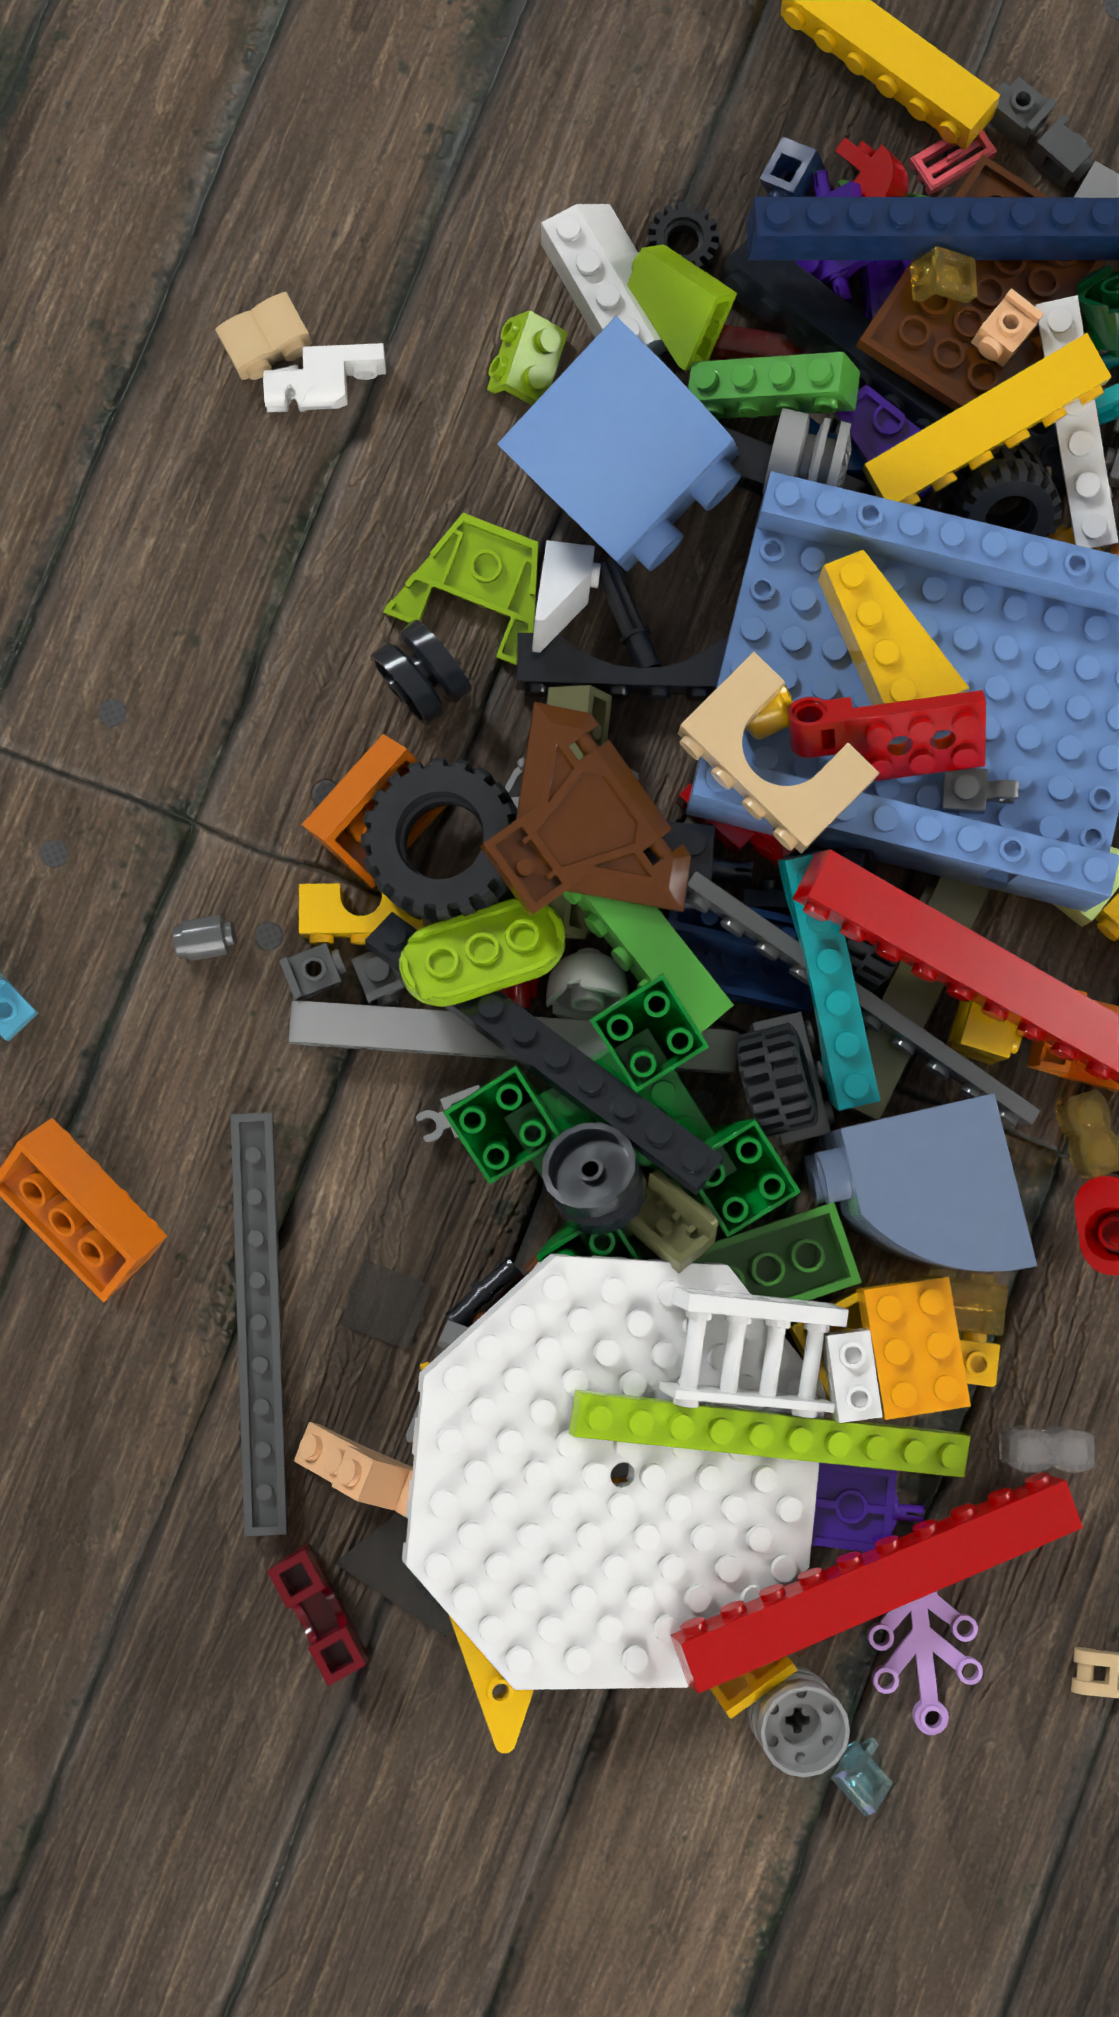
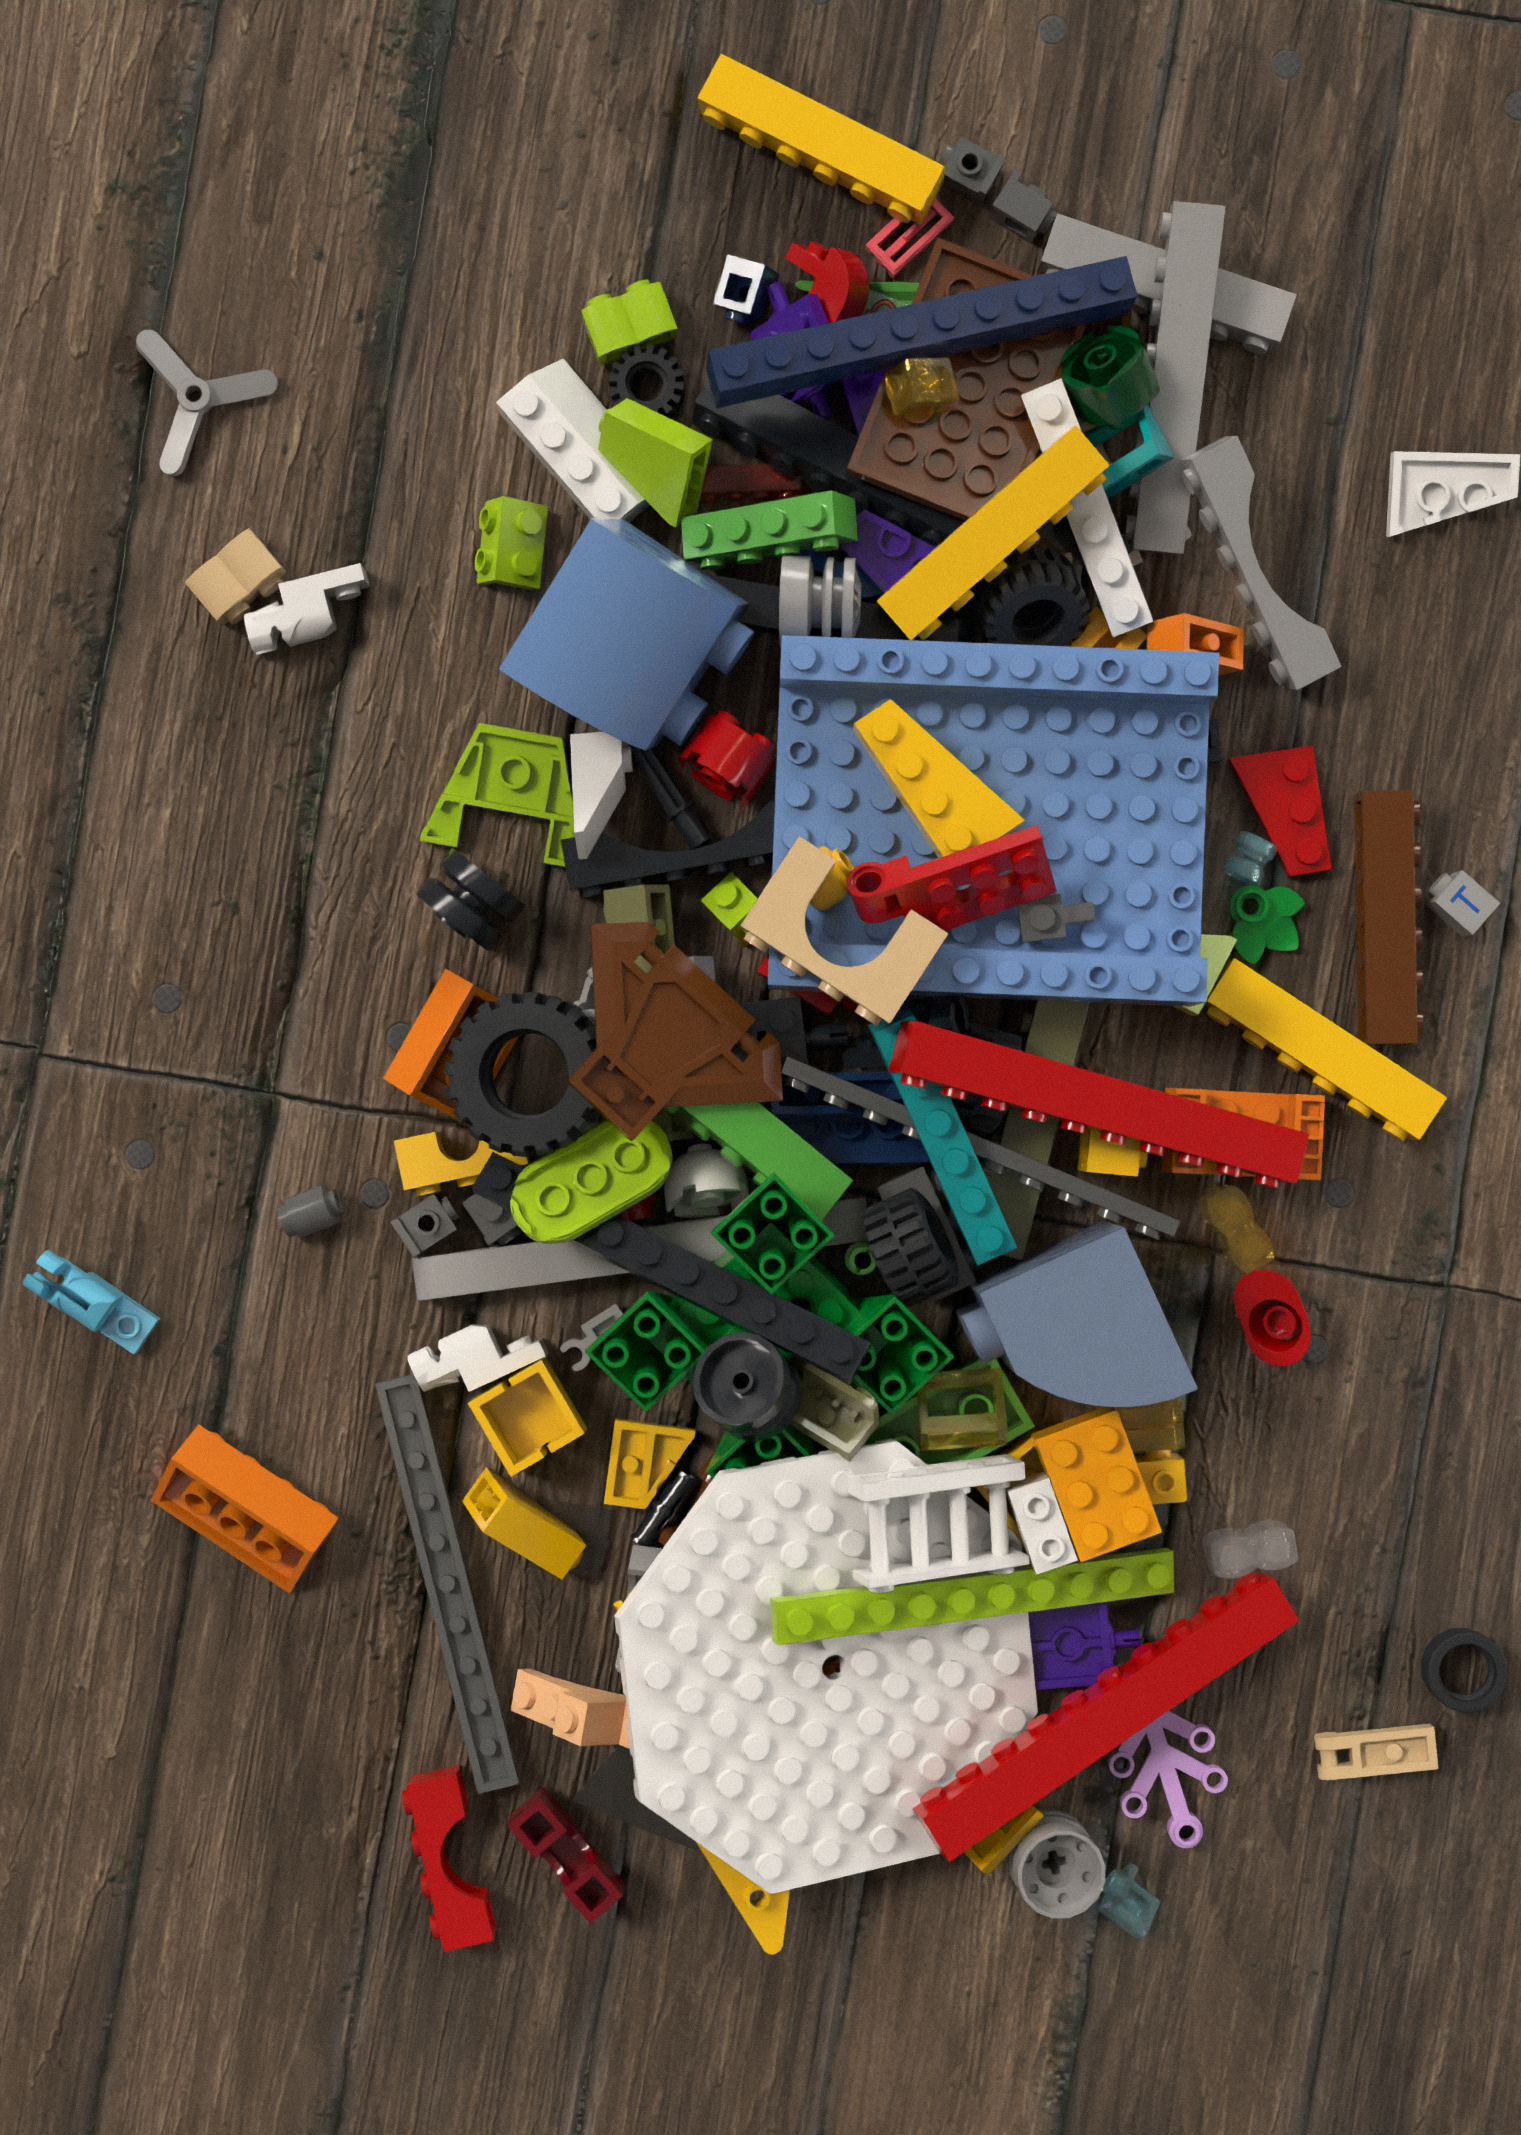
camera: 10 degrees left, 5 degrees up
(203, 1649) = (461, 1910): none -> red arch
(255, 155) = (183, 383): none -> light grey piece
(331, 1107) = (474, 1356): none -> white plate
(345, 1280) = (523, 1524): none -> yellow slope
(371, 1174) = (527, 1416): none -> yellow piece
(472, 1242) = (642, 1460): none -> yellow wing
(662, 731) = (730, 904): none -> lime bracket
(677, 178) = (629, 320): none -> lime brick
(691, 592) = (728, 758): none -> red brick
(734, 1085) = (852, 1251): none -> bright green pin
(793, 1268) = (963, 1430): none -> clear yellow tile
(1007, 328) = (1003, 412): light nougat brick -> none

